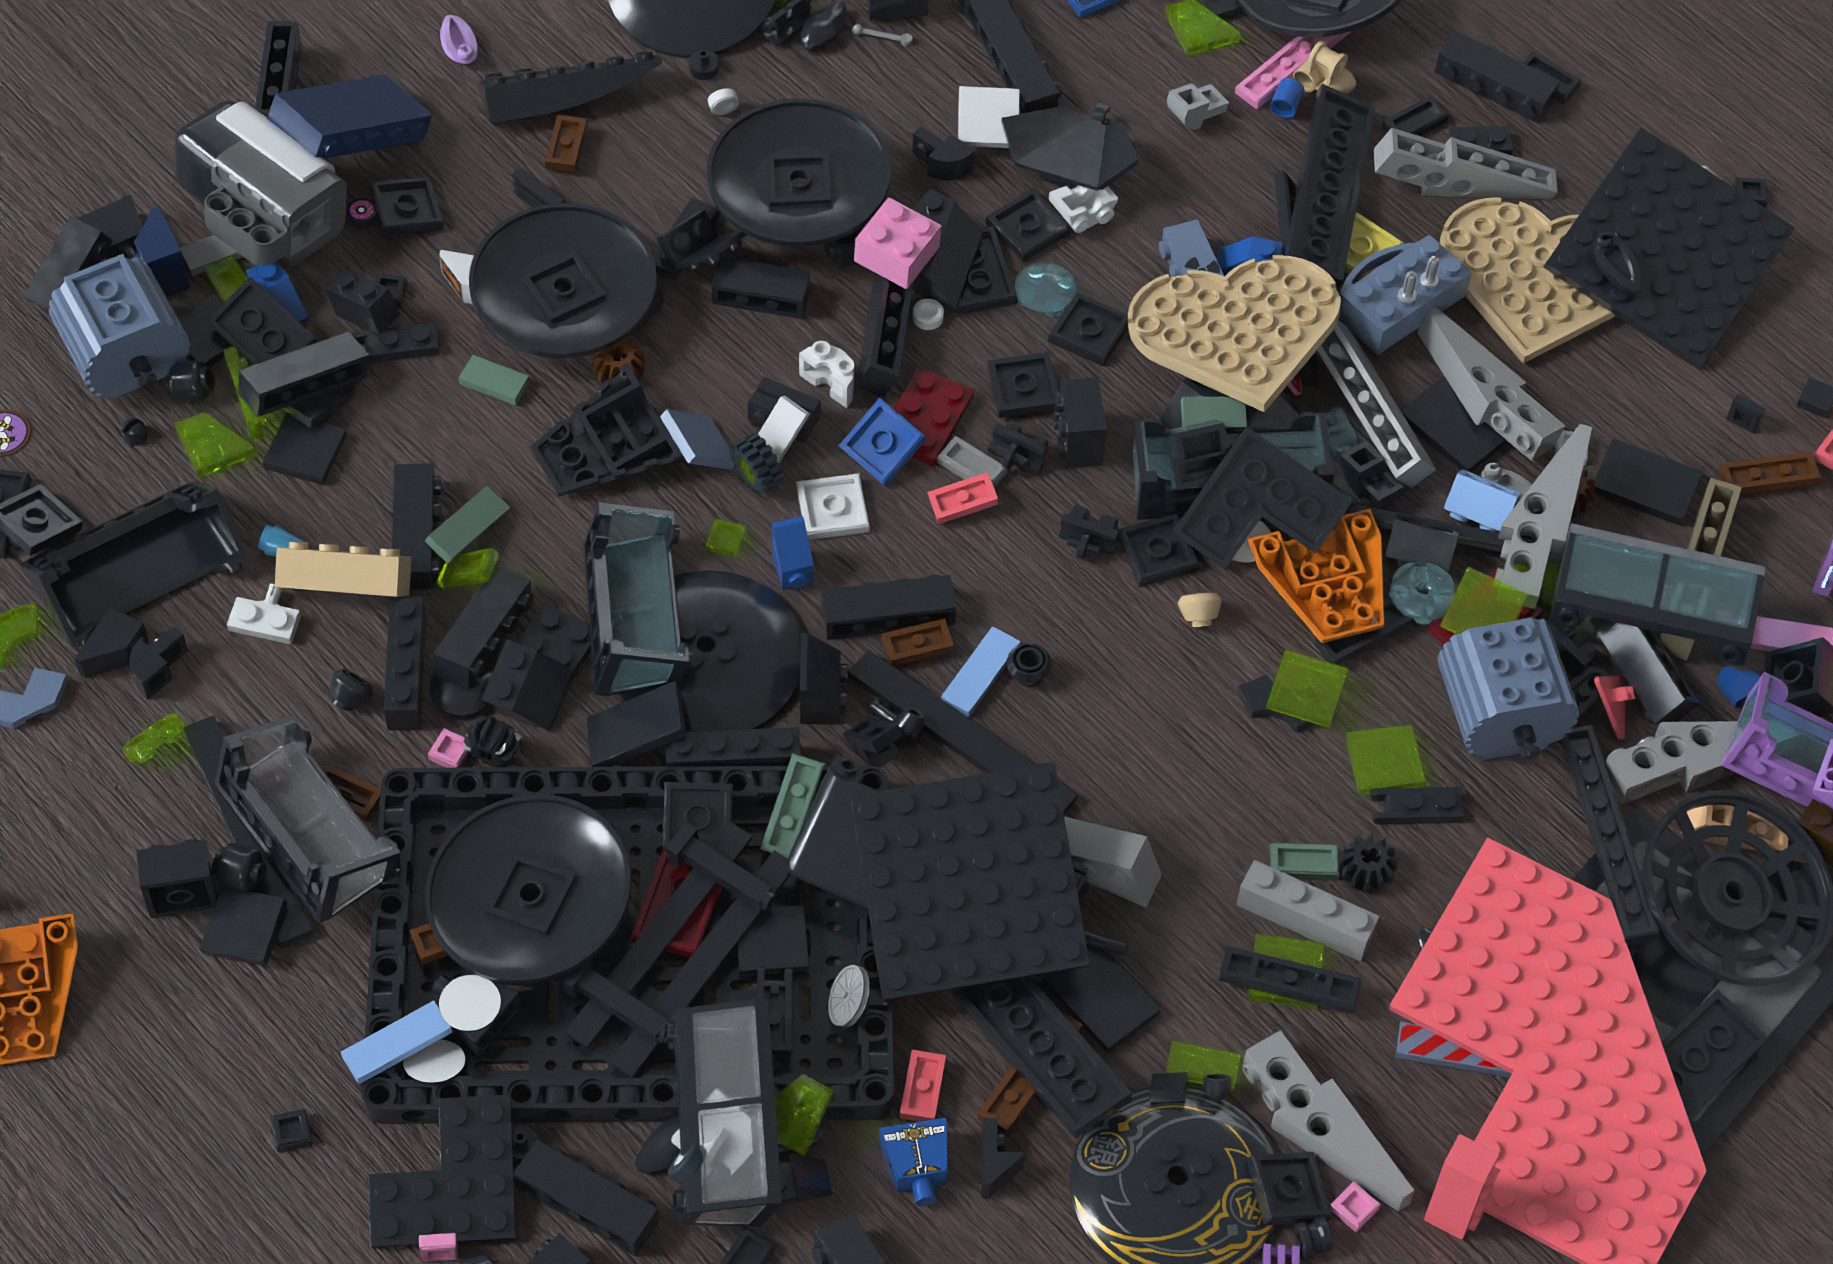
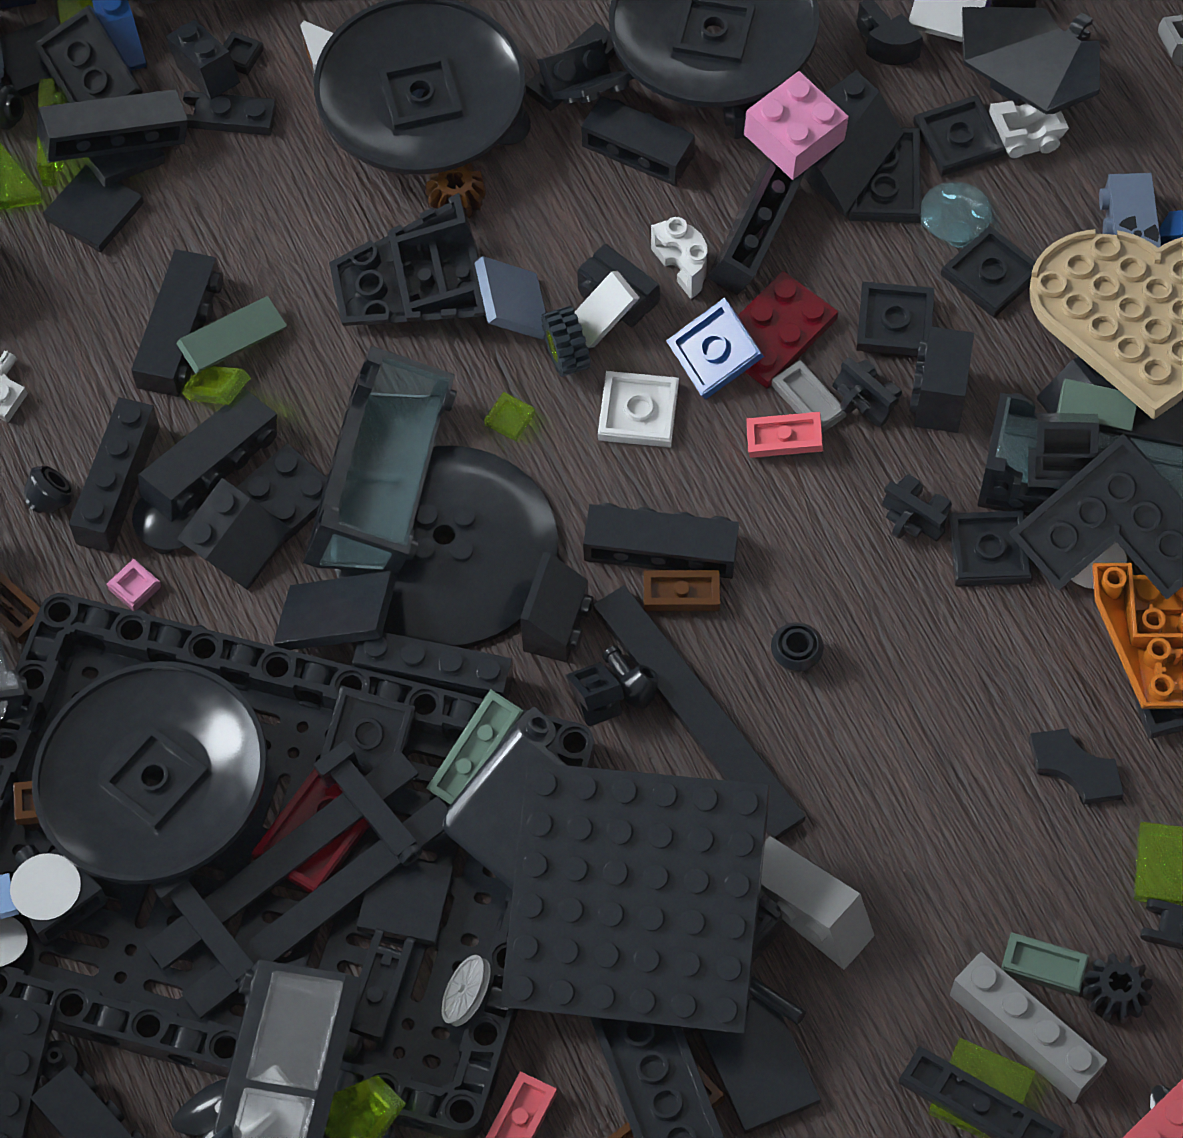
camera: 20 degrees right, 5 degrees up
(275, 538) = (32, 308): dark azure cone -> none
(342, 570) = (80, 355): tan brick -> none
(492, 741) = (176, 588): black gear -> none
(494, 380) = (317, 178): sand green tile -> none
(792, 553) = (571, 453): blue slope -> none
(928, 314) = (815, 212): white tile -> none
(979, 672) = (740, 642): light blue tile -> none
(1200, 608) = (1014, 630): tan cone -> none
(1307, 688) = (1109, 757): clear neon green tile -> none

